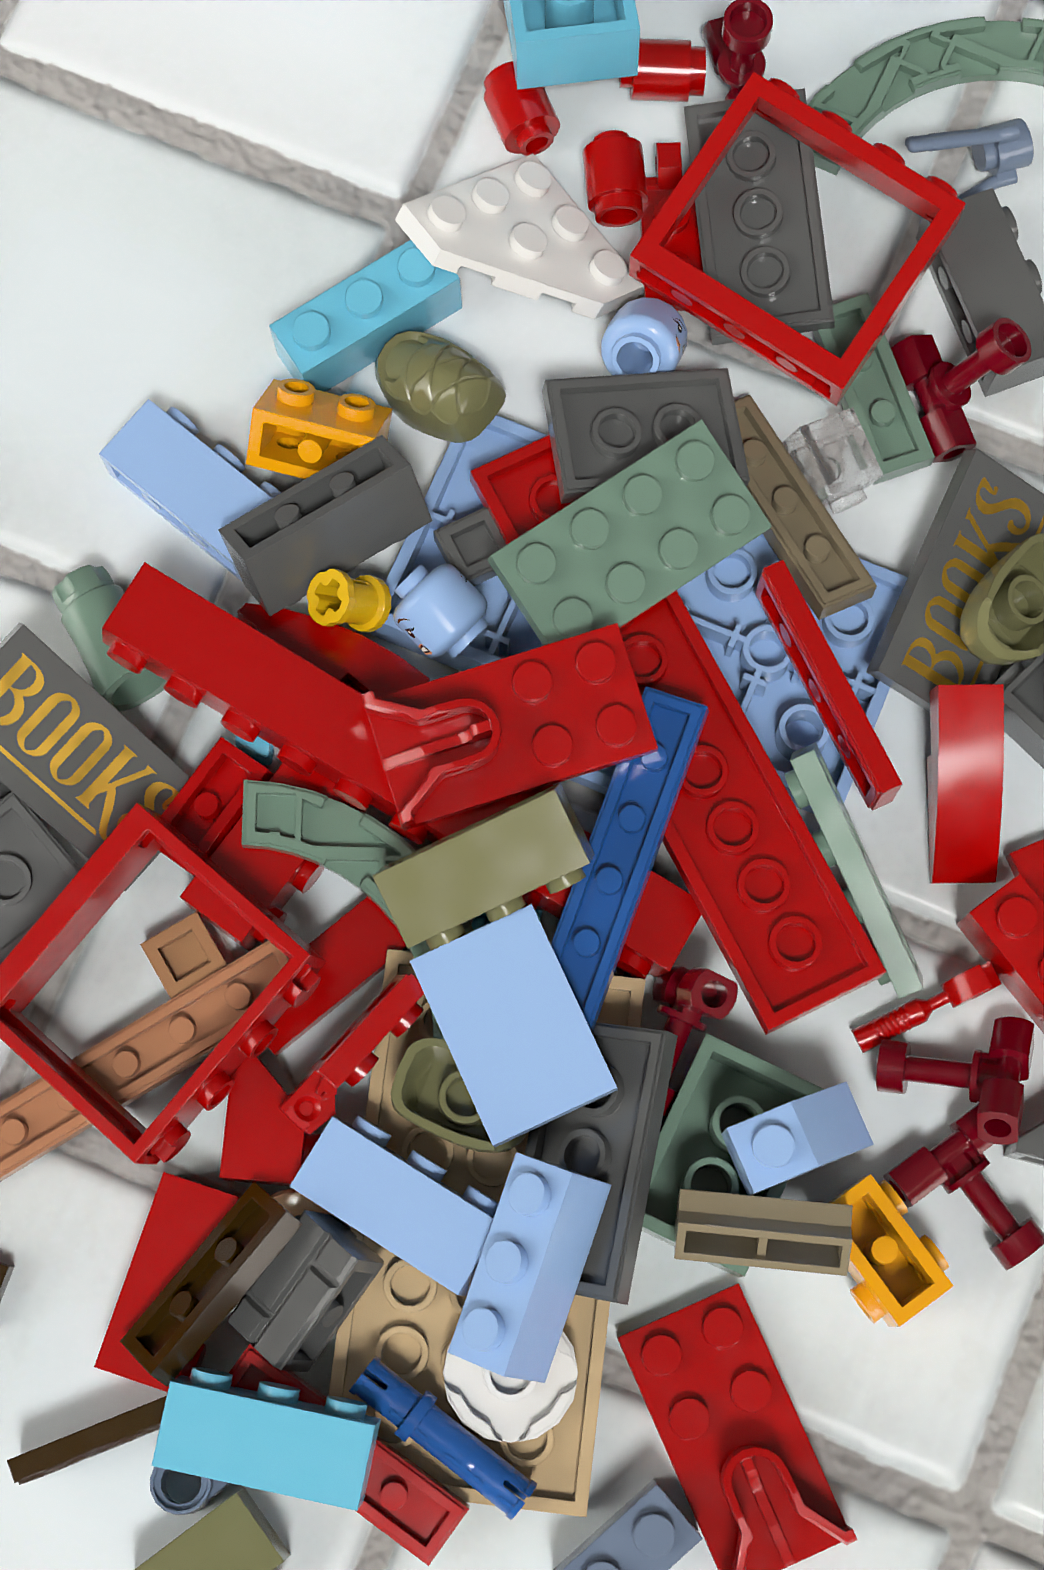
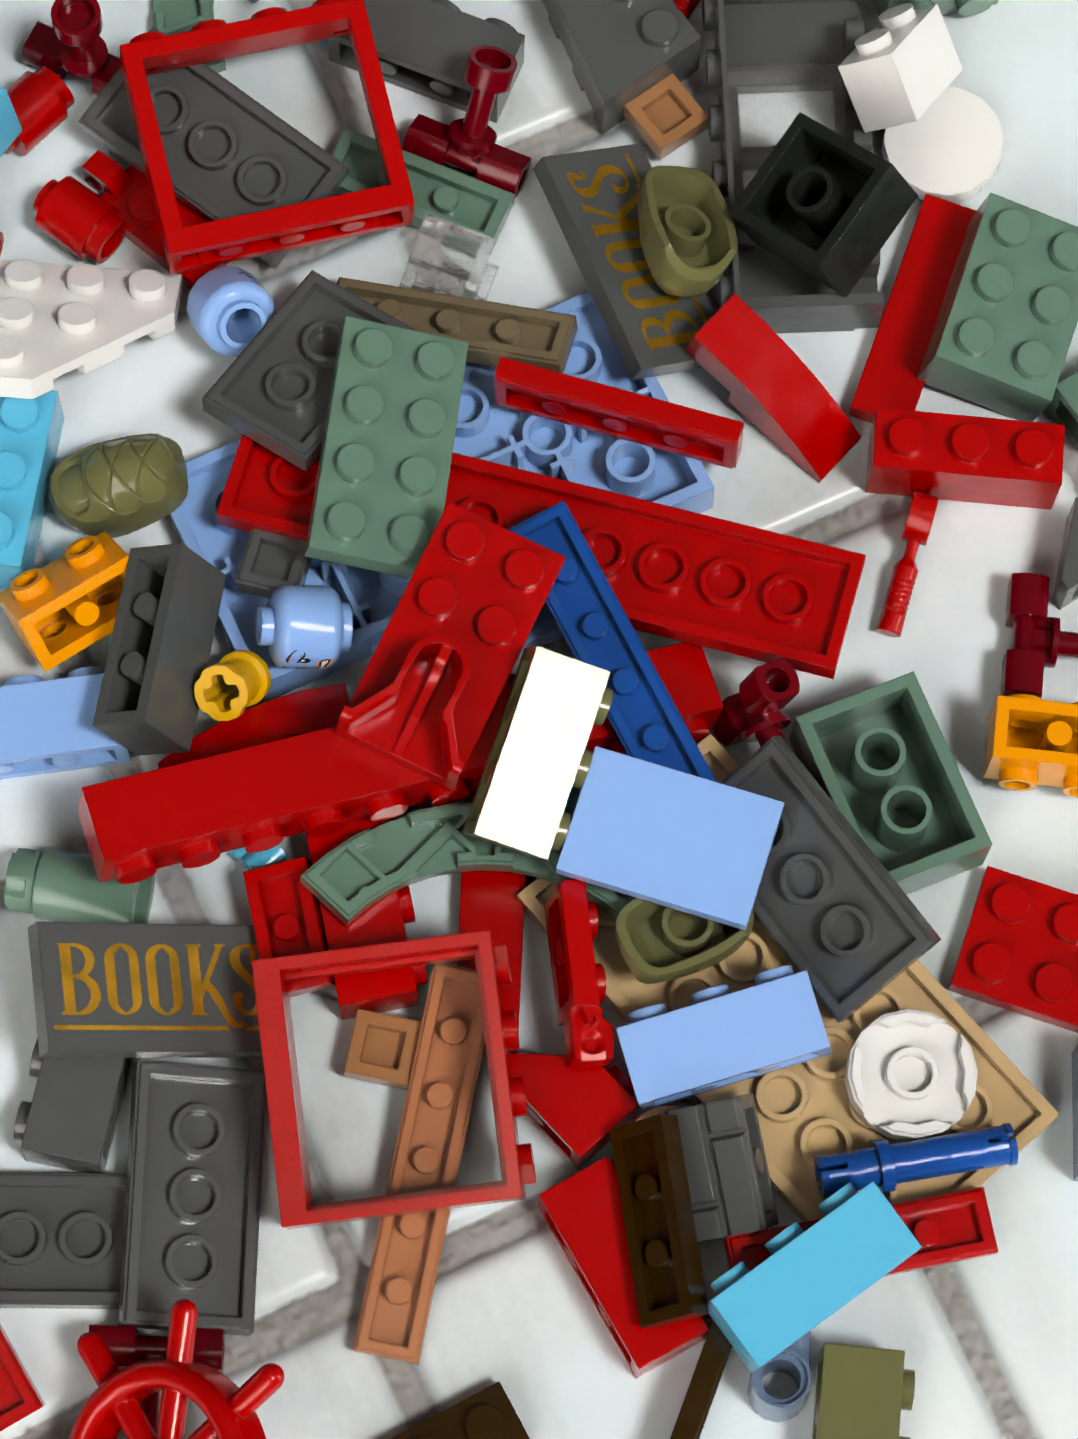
camera: 55 degrees left, 5 degrees down
(529, 1269) = (856, 978): light blue brick -> none
(763, 1232) = (973, 798): dark tan piece -> none
(796, 1138) = (929, 722): light blue slope -> none
(841, 845) = (685, 485): plate -> none
(990, 1077) = (1000, 560): dark red bar -> none

